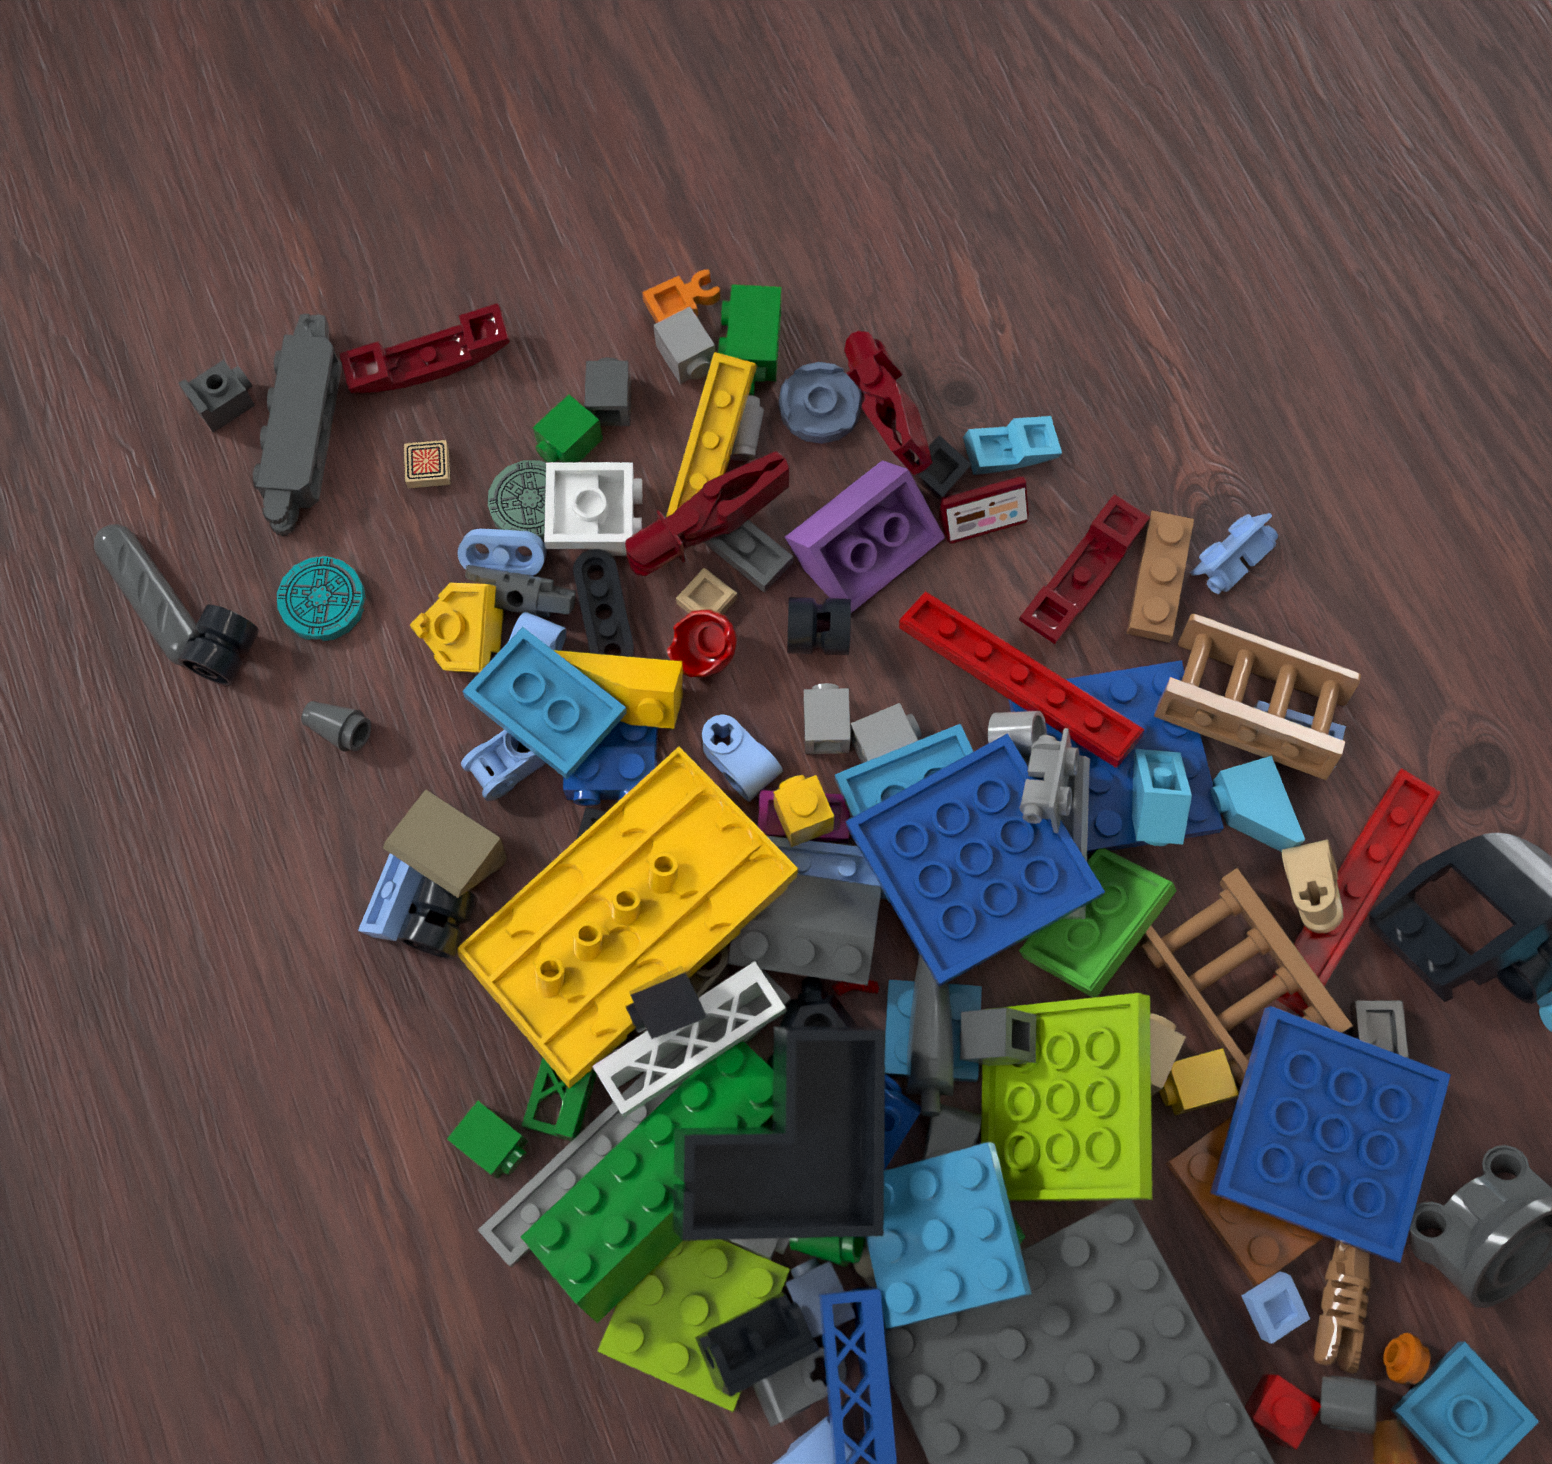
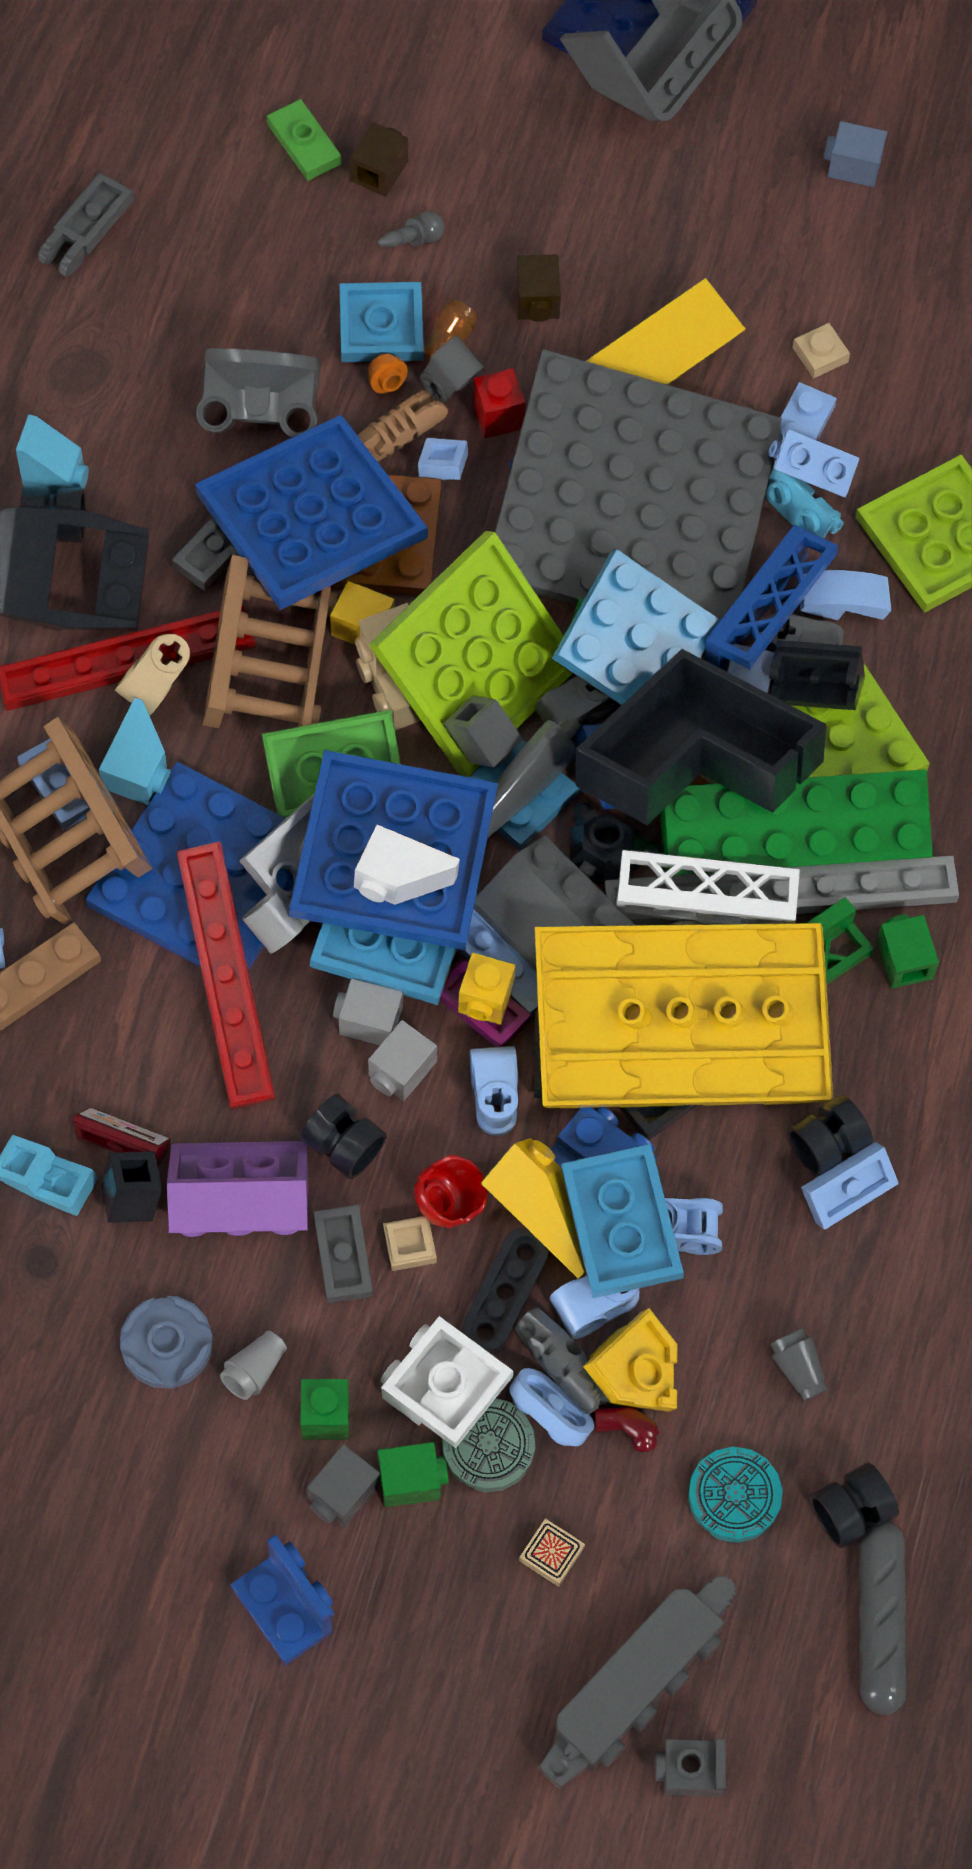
camera: 145 degrees left, 5 degrees down
(426, 357) = (472, 1659): dark red slope -> none
(427, 589) = (630, 1421): none -> dark red arm
(445, 845) = (786, 1173): dark tan slope -> none
(583, 296) = (284, 1602): none -> blue bracket
(663, 428) = (325, 1409): none -> green brick
(665, 1004) = (711, 897): black slope -> none
(674, 296) = (211, 1534): orange plate -> none
(684, 345) = (239, 1477): light grey brick -> none
(708, 513) = (357, 1287): dark red arm -> none
(714, 426) = (297, 1357): yellow tile -> none
(753, 328) = (176, 1439): green hinge -> none
(886, 401) = (124, 1267): dark red arm -> none
(948, 826) = (402, 868): none -> white slope
(1051, 796) = (278, 854): light grey hinge -> none
(1085, 570) = (93, 1025): dark red slope -> none
(1160, 797) = (209, 801): medium azure slope -> none

